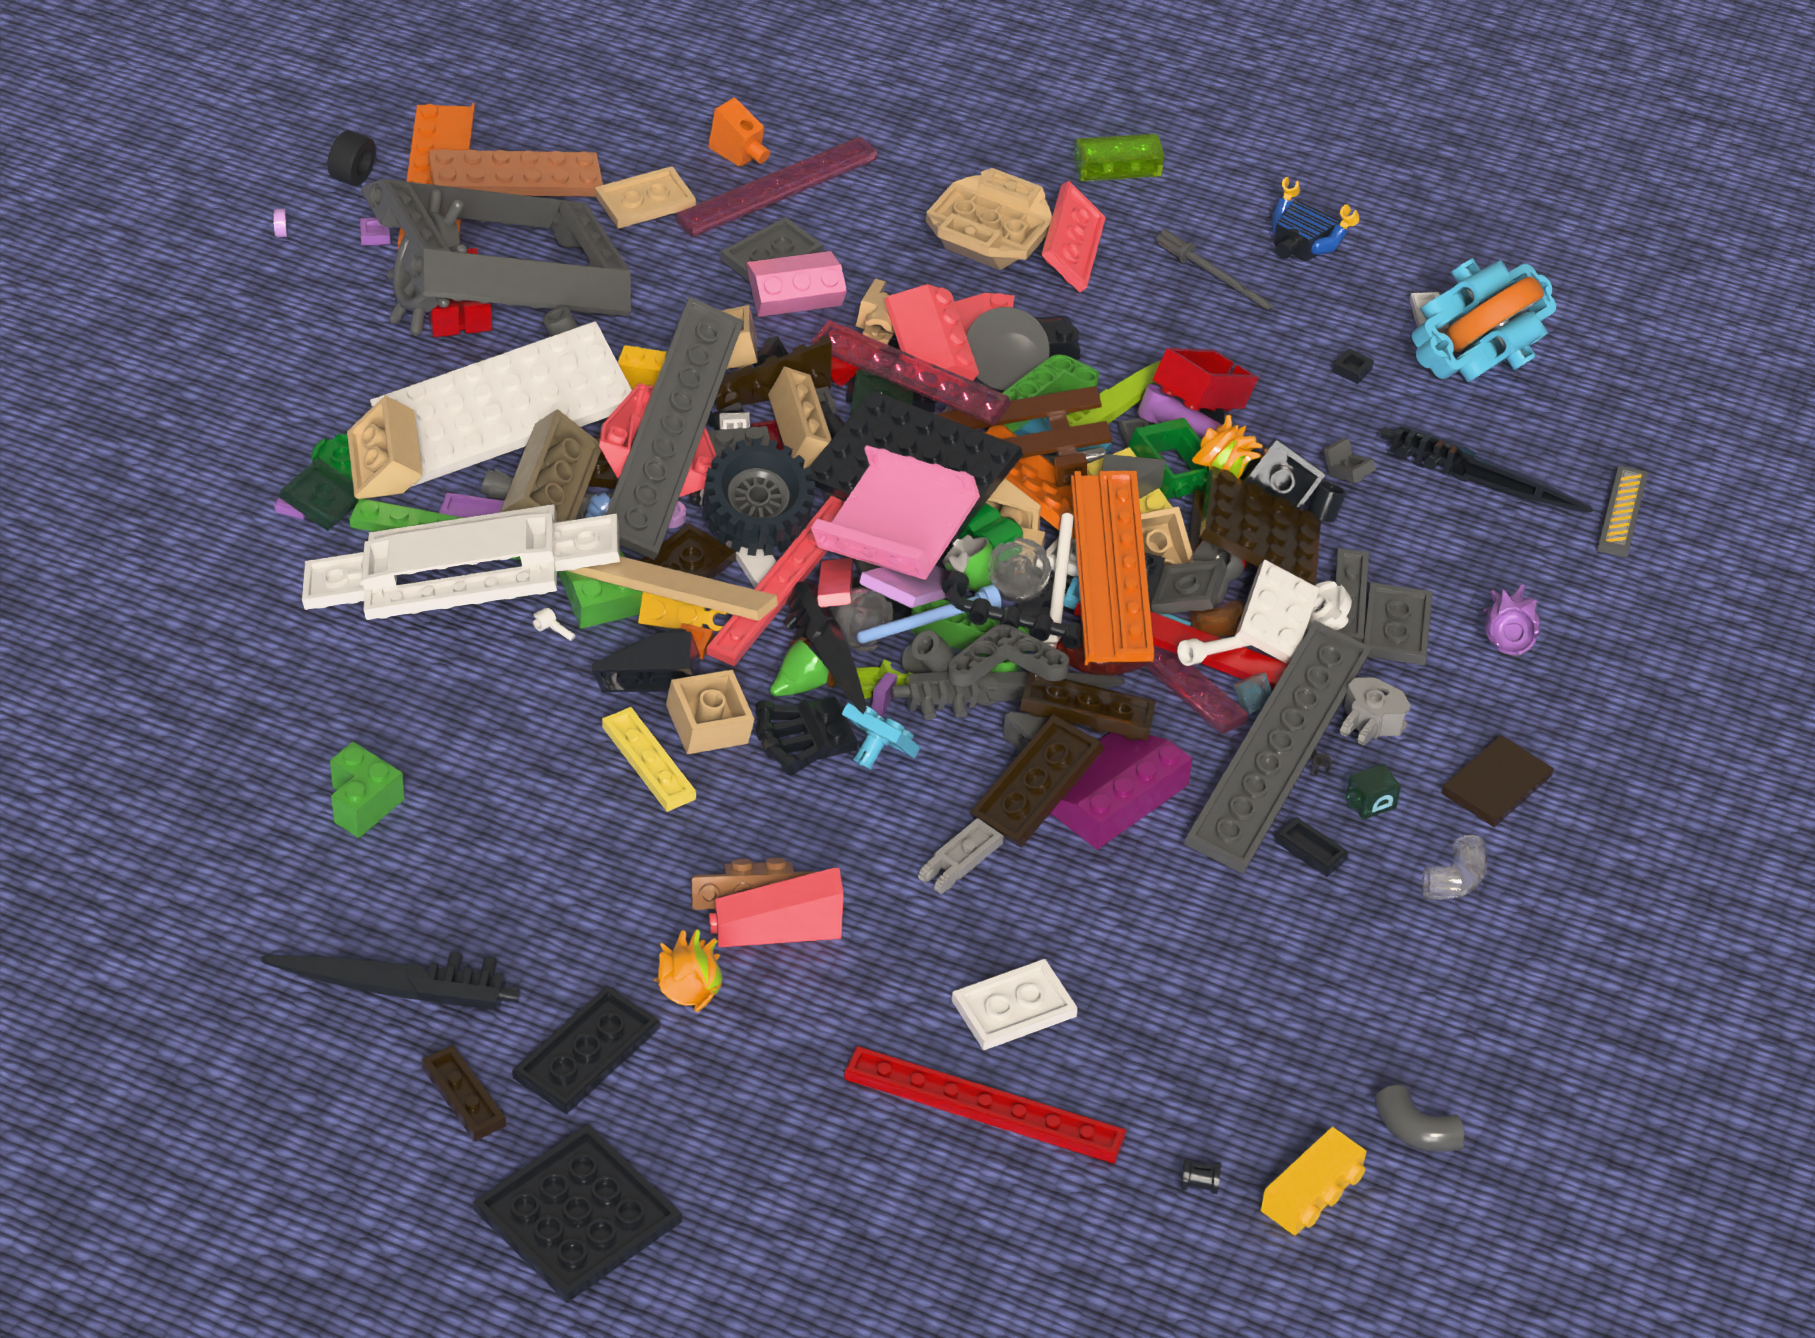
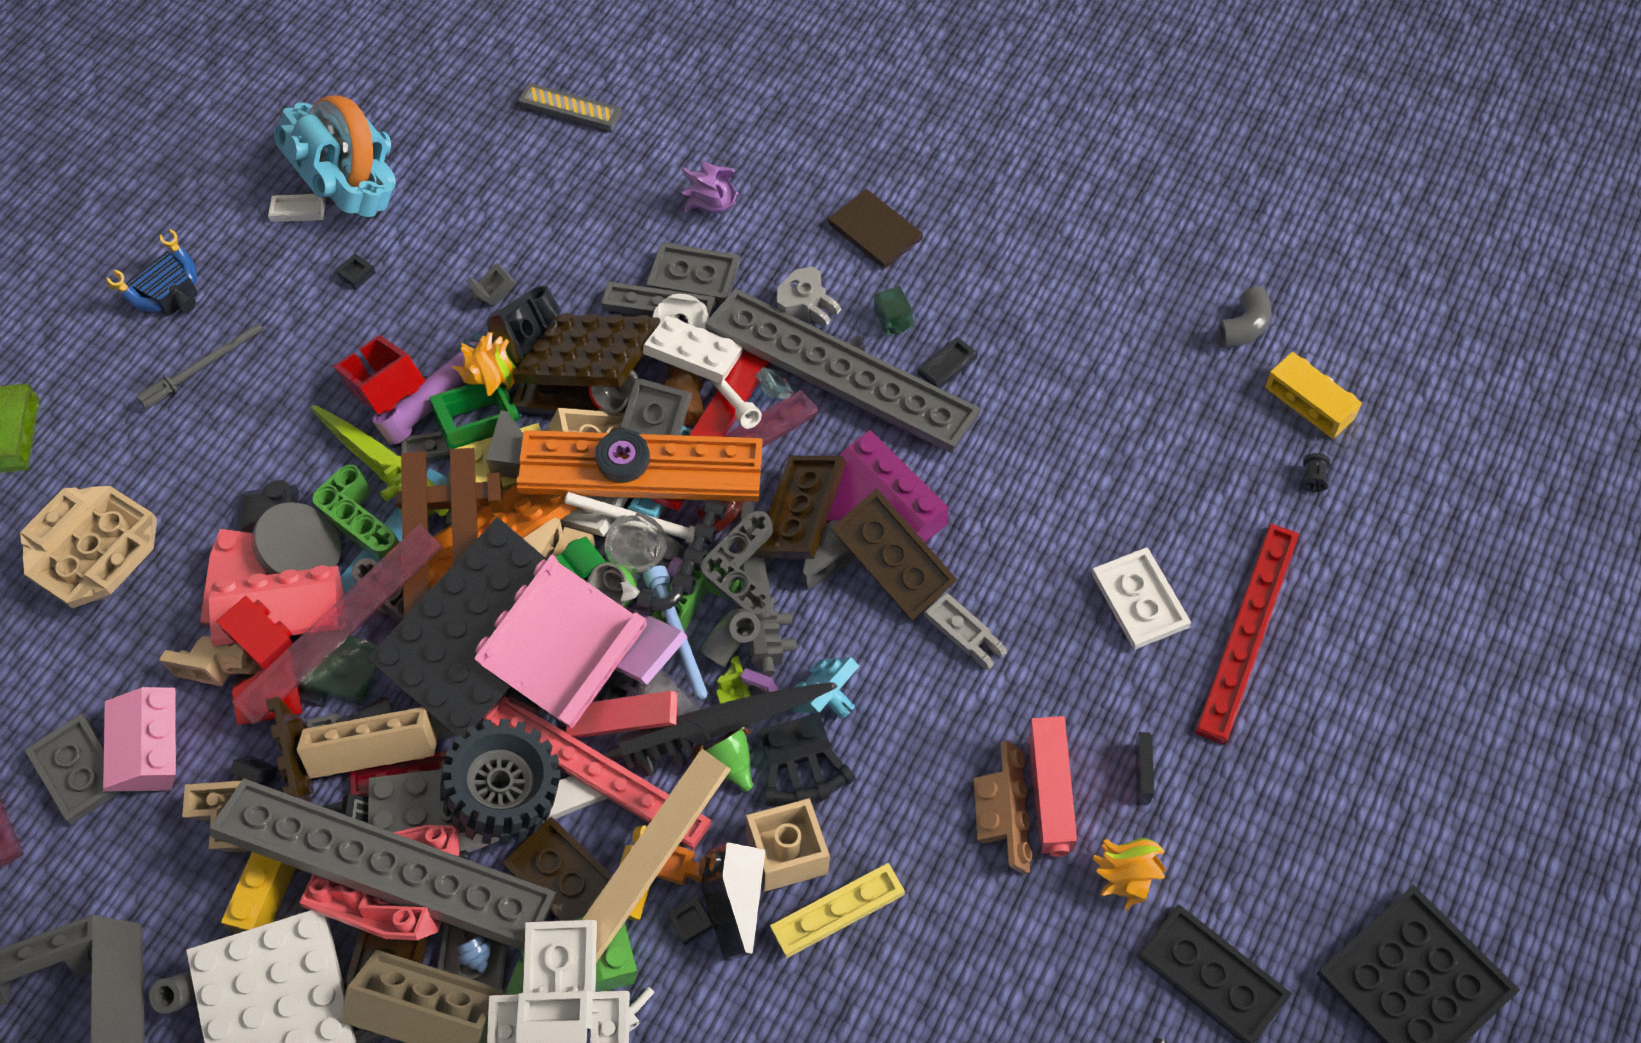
camera: 80 degrees left, 15 degrees up
(807, 995) = (1144, 768): none -> black tile
(892, 314) = (255, 632): none -> red brick
(1073, 236) = (130, 473): coral piece -> none
(1113, 529) = (617, 468): none -> black bush
(1460, 877) = (986, 261): clear cylinder -> none
(1466, 465) = (496, 207): black piece -> none

